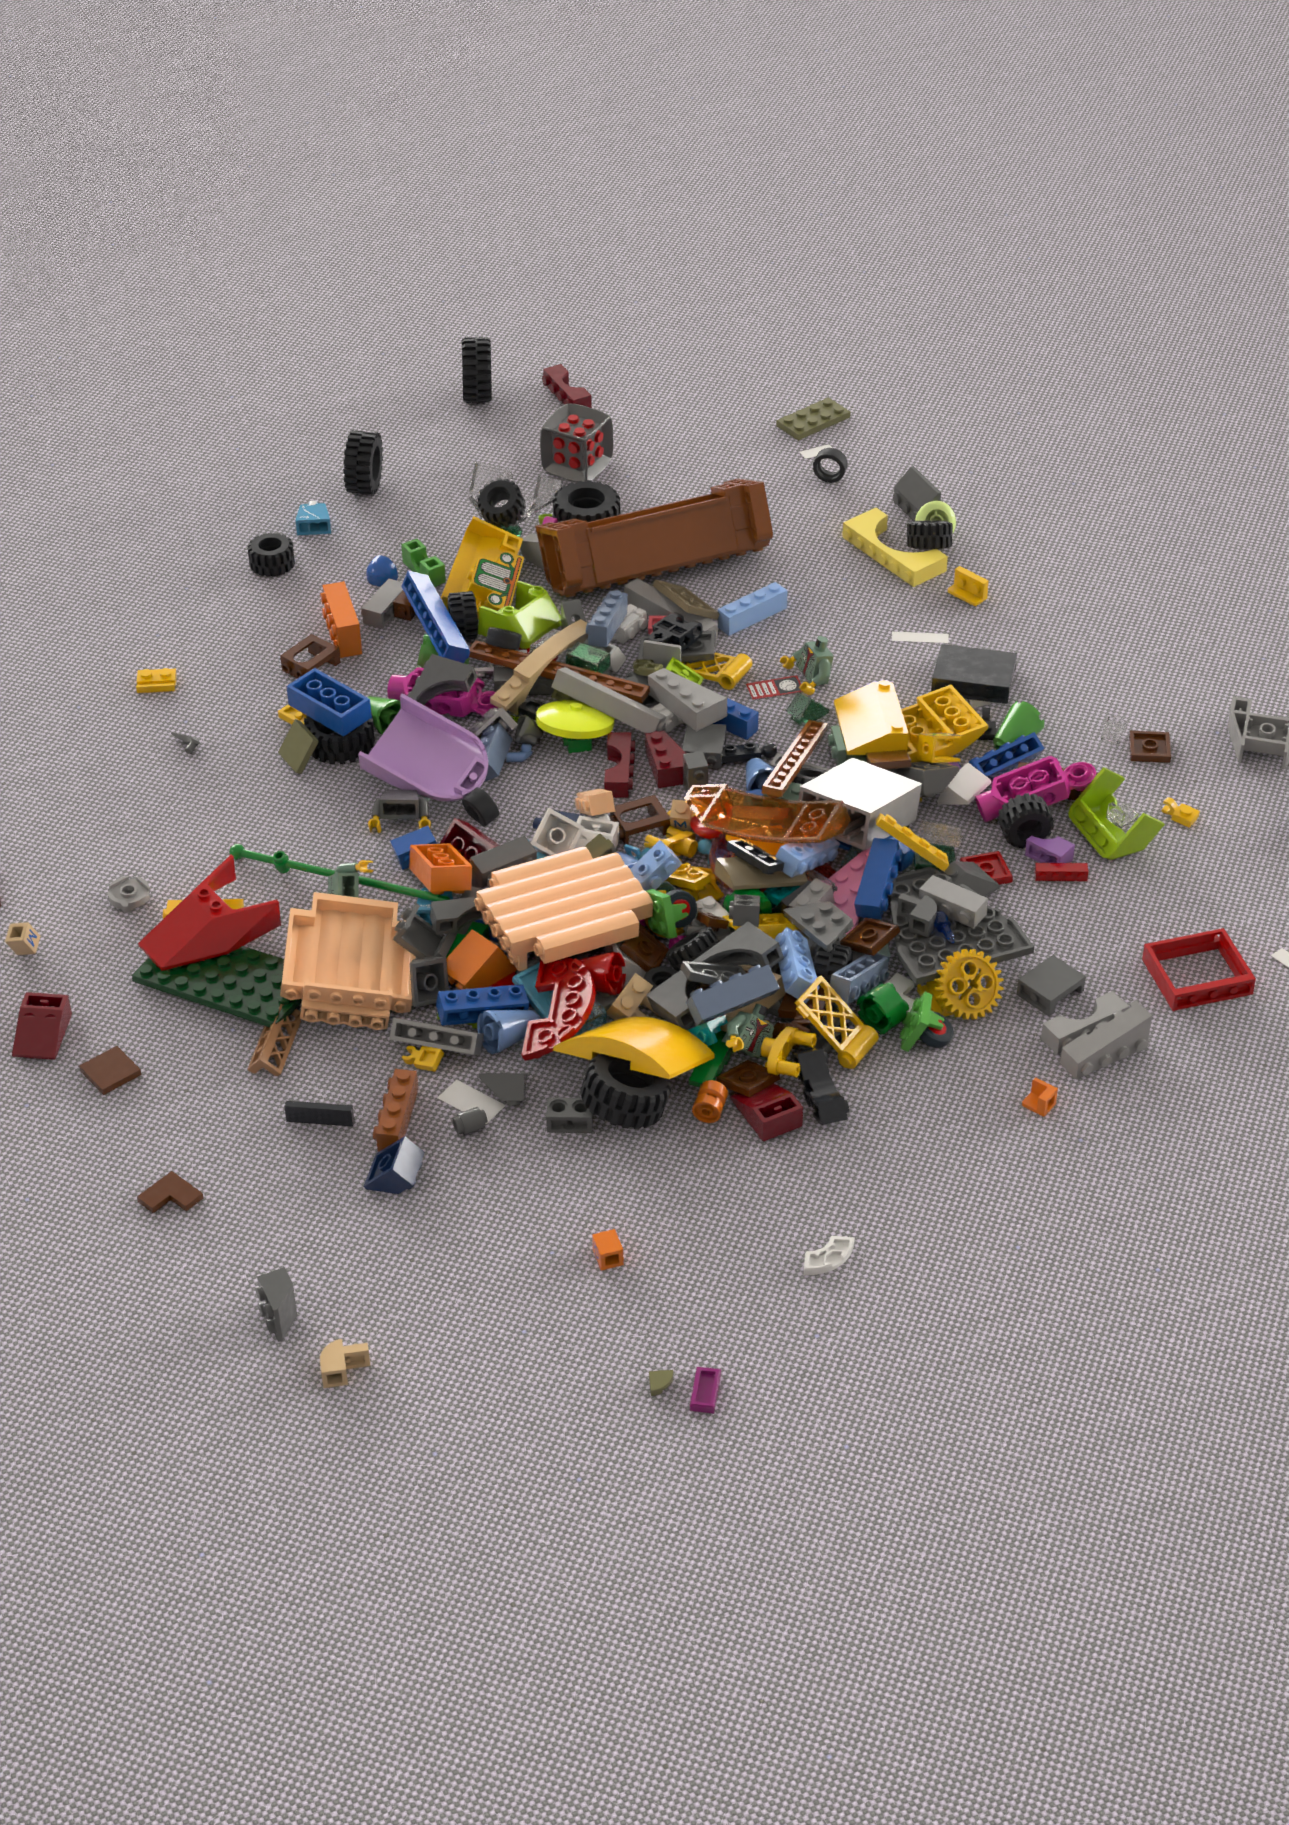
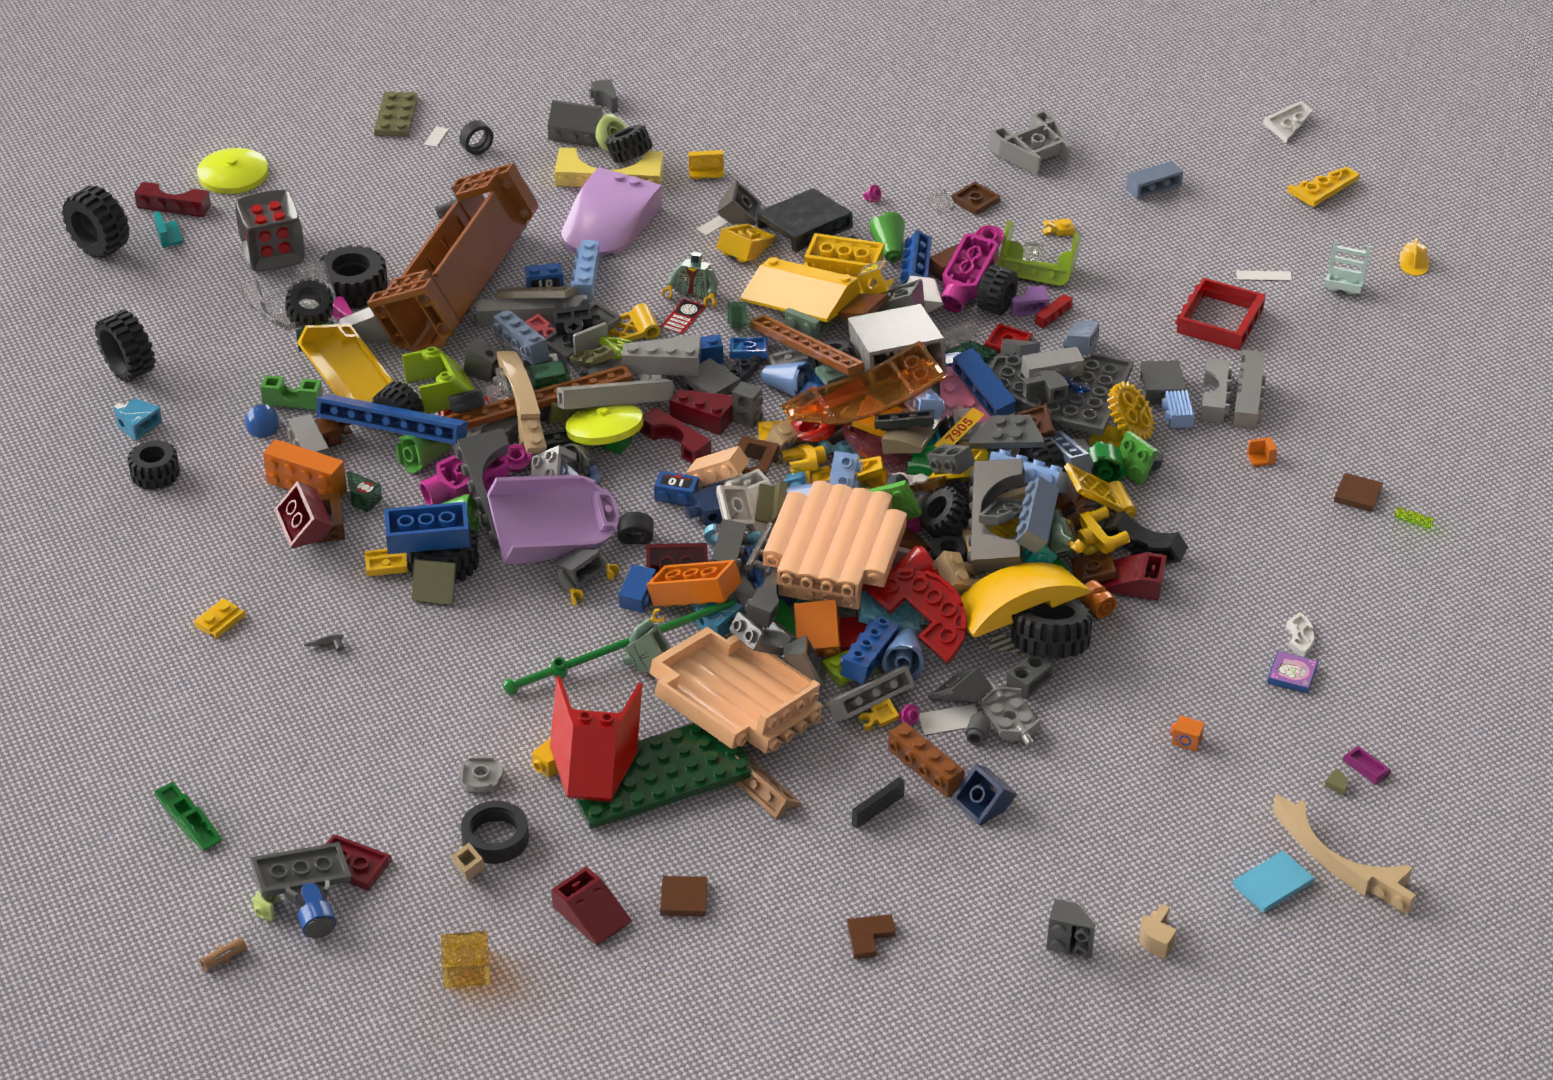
camera: 50 degrees left, 0 degrees up
(79, 951) = (496, 811): none -> black tyre
(287, 645) = (303, 516): none -> dark red slope
(360, 659) = (363, 491): none -> clear green slope
(442, 1073) = (909, 714): none -> dark pink plate
(486, 1406) = (1273, 881): none -> medium azure tile
(495, 580) = (380, 364): brick -> none
(514, 1118) = (1008, 702): none -> light grey plate
(530, 409) = (167, 232): none -> teal panel
(554, 1476) = (1384, 882): none -> tan slope
(555, 796) = (675, 488): none -> blue brick
(640, 394) = (232, 171): none -> neon yellow dish
(714, 592) = (544, 275): none -> blue brick
(771, 1276) = (1292, 672): none -> tile
(773, 737) = (747, 347): none -> blue tile
(795, 896) = (961, 427): none -> yellow sticker
(839, 578) = (611, 211): none -> lavender windscreen
(903, 660) = (744, 242): none -> yellow slope
(912, 841) = (981, 344): yellow wing -> none
(945, 630) = (739, 205): none -> dark grey slope
(984, 490) = (604, 94): none -> dark grey arch
(1027, 1015) = (1178, 409): none -> light blue brick
(1029, 902) = (1082, 335): none -> sand blue brick
(1068, 689) = (874, 193): none -> dark pink plate
(1072, 1189) = (1358, 492): none -> reddish brown tile
(1083, 1245) = (1414, 517): none -> clear neon green axle

